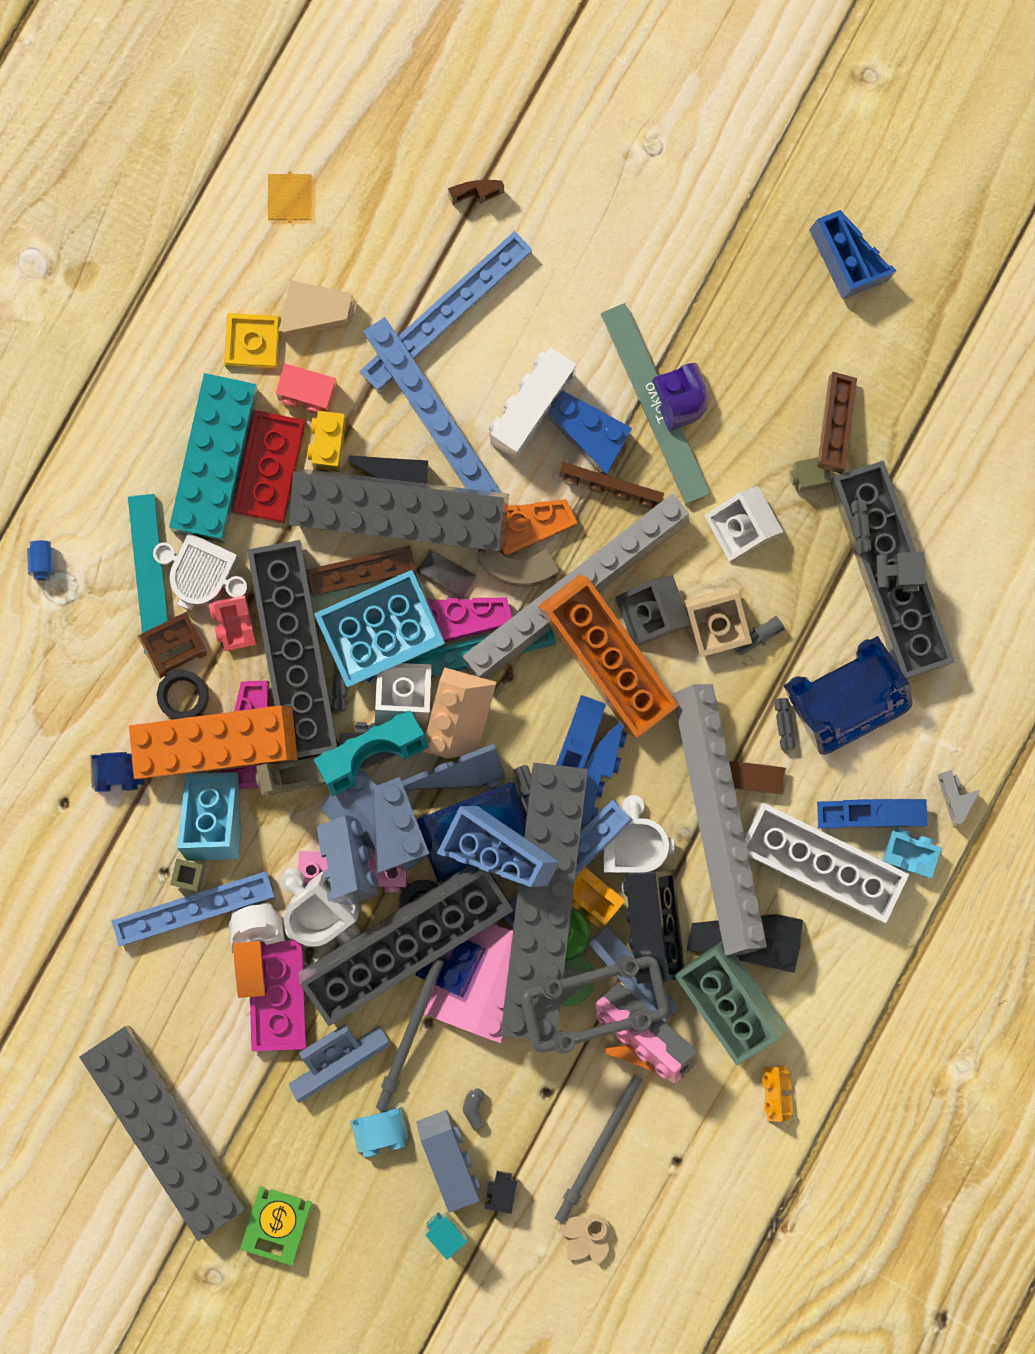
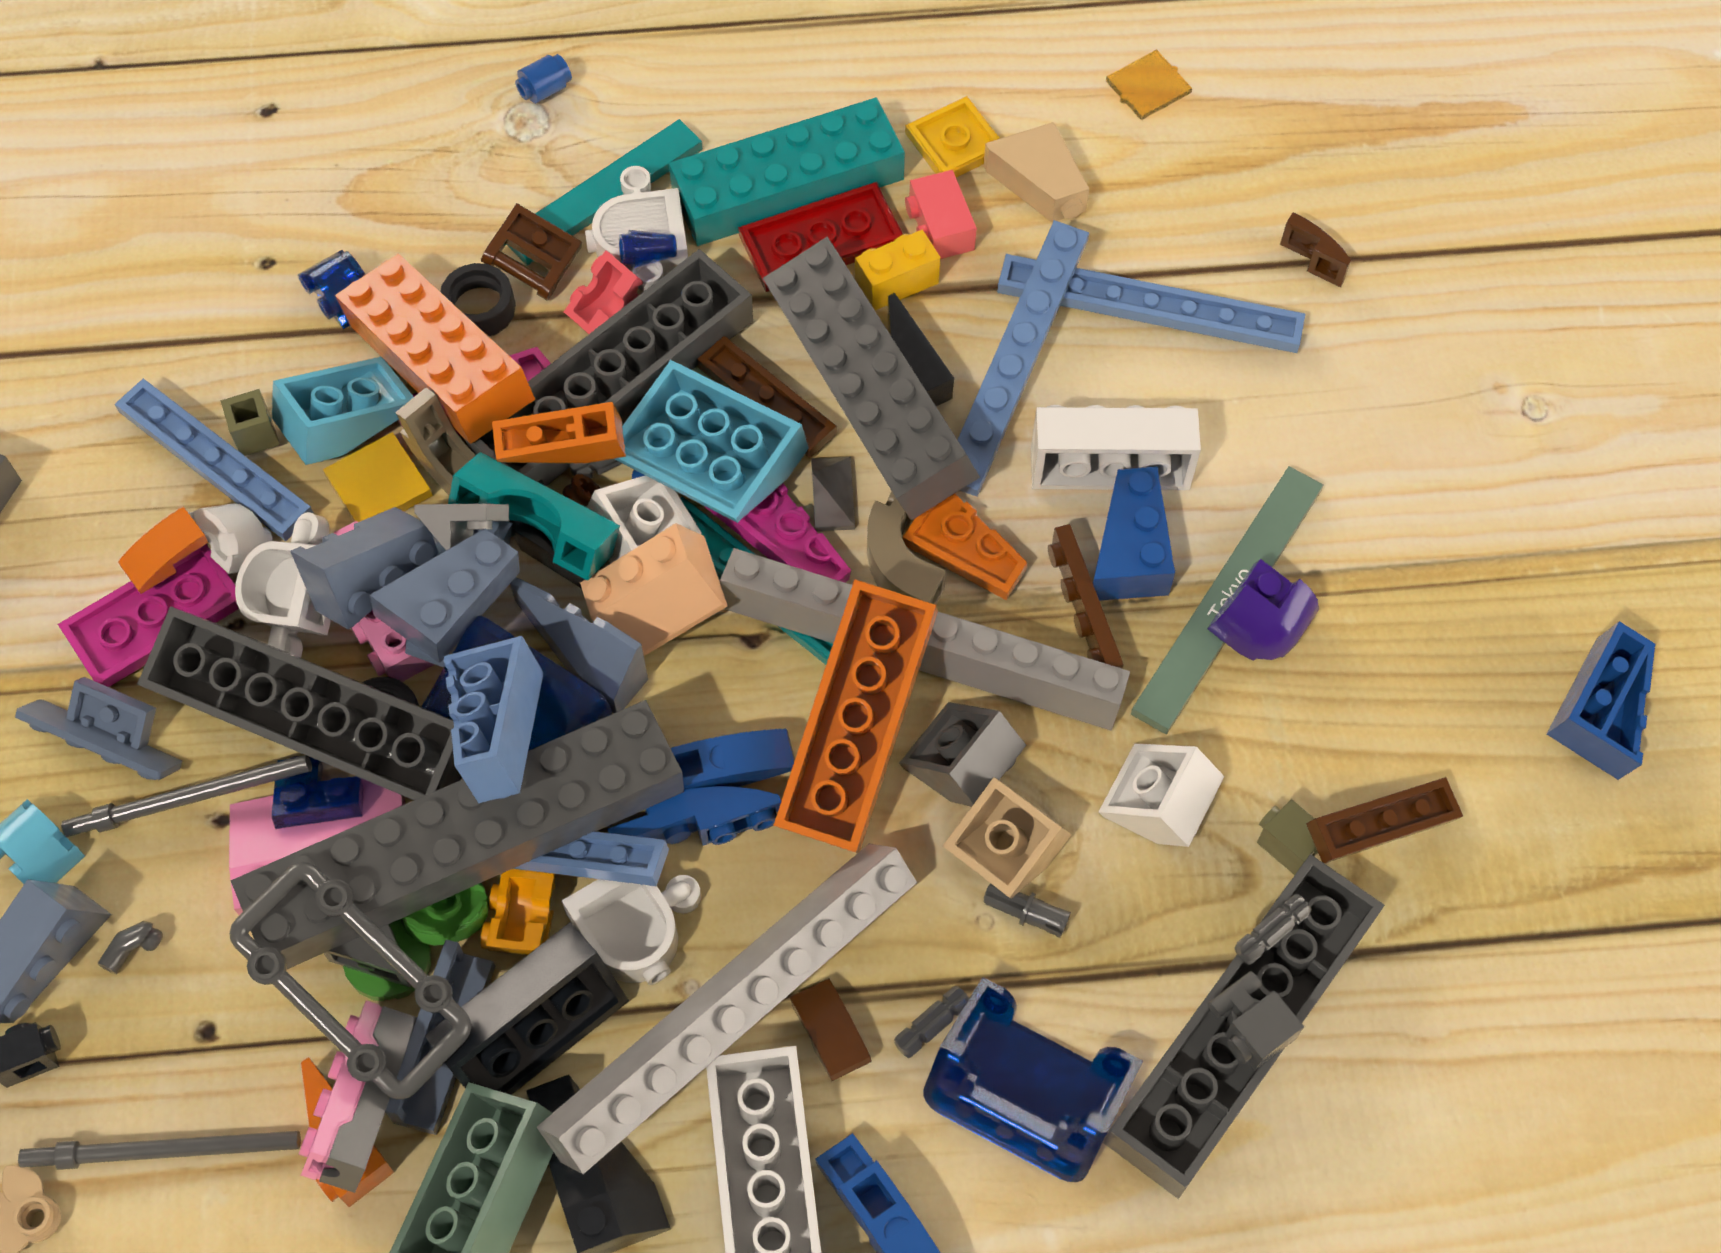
camera: 60 degrees right, 20 degrees down
(225, 580) = (645, 247): none -> clear blue cone
(269, 824) = (377, 479): none -> yellow tile
(332, 709) = (561, 436): none -> orange slope
(352, 798) = (456, 522): none -> light grey slope
(358, 714) = (580, 489): none -> reddish brown bush

